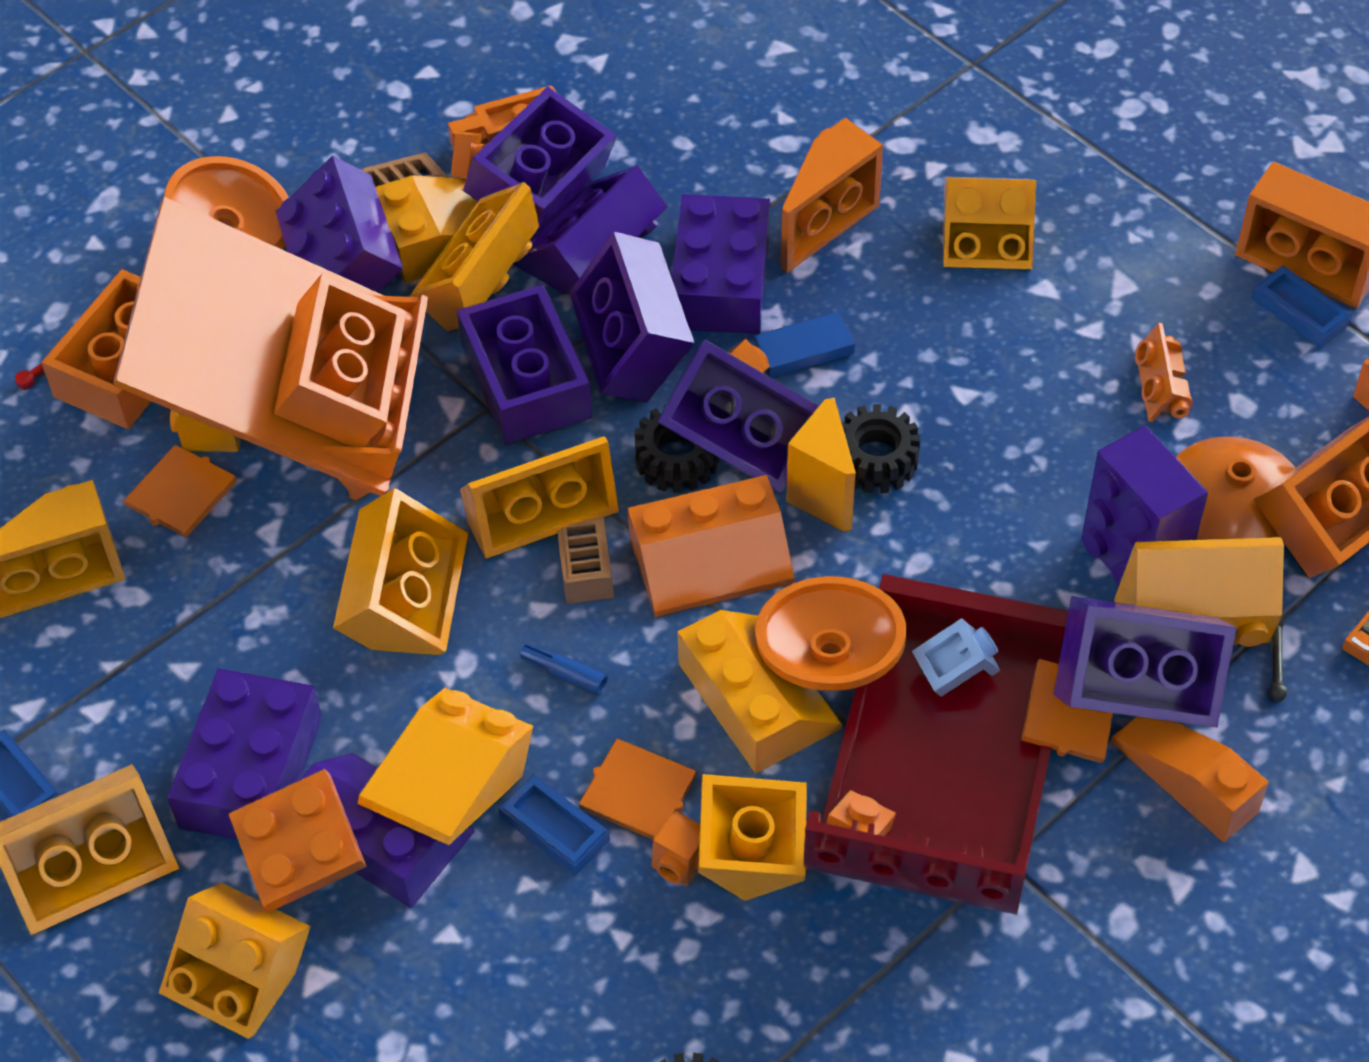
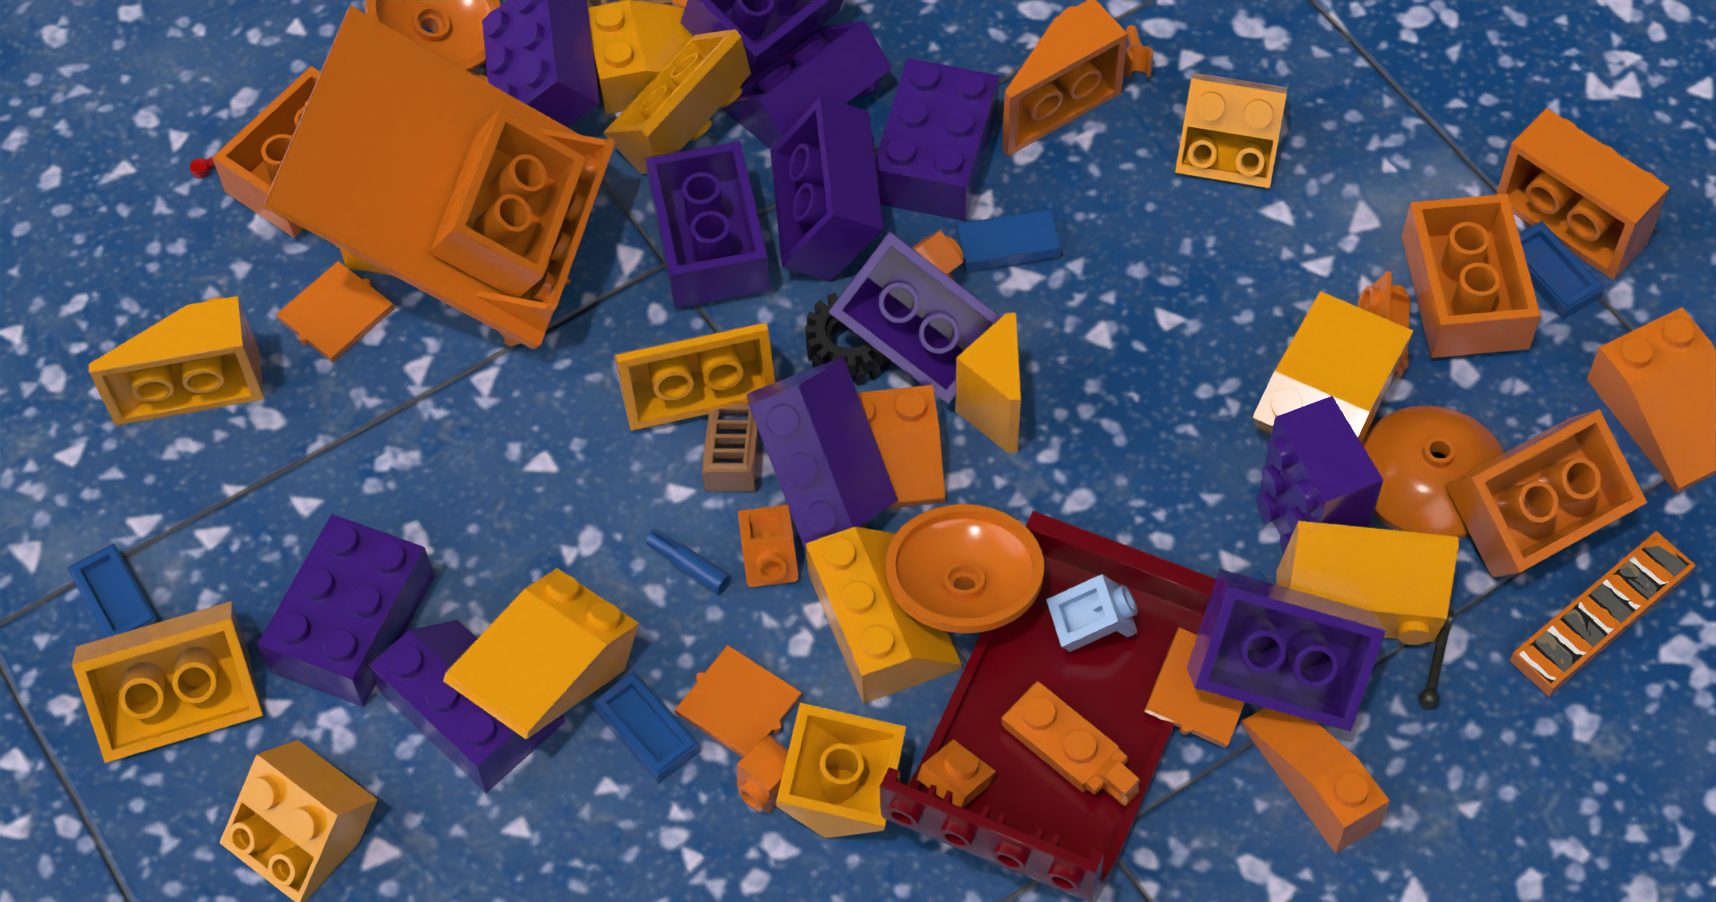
camera: 10 degrees right, 5 degrees up
(297, 840) = (376, 710): orange plate -> none
(401, 577) = (539, 439): light orange slope -> none
(638, 643) = (768, 546): none -> orange bracket
(676, 545) = (822, 450): none -> dark purple slope
(888, 429) = (1067, 345): black tyre -> none
(891, 173) = (1137, 56): none -> orange hand
(961, 779) = (1070, 744): none -> orange hinge
(1123, 397) = (1337, 354): none -> light orange slope
(1232, 318) = (1470, 275): none -> orange brick

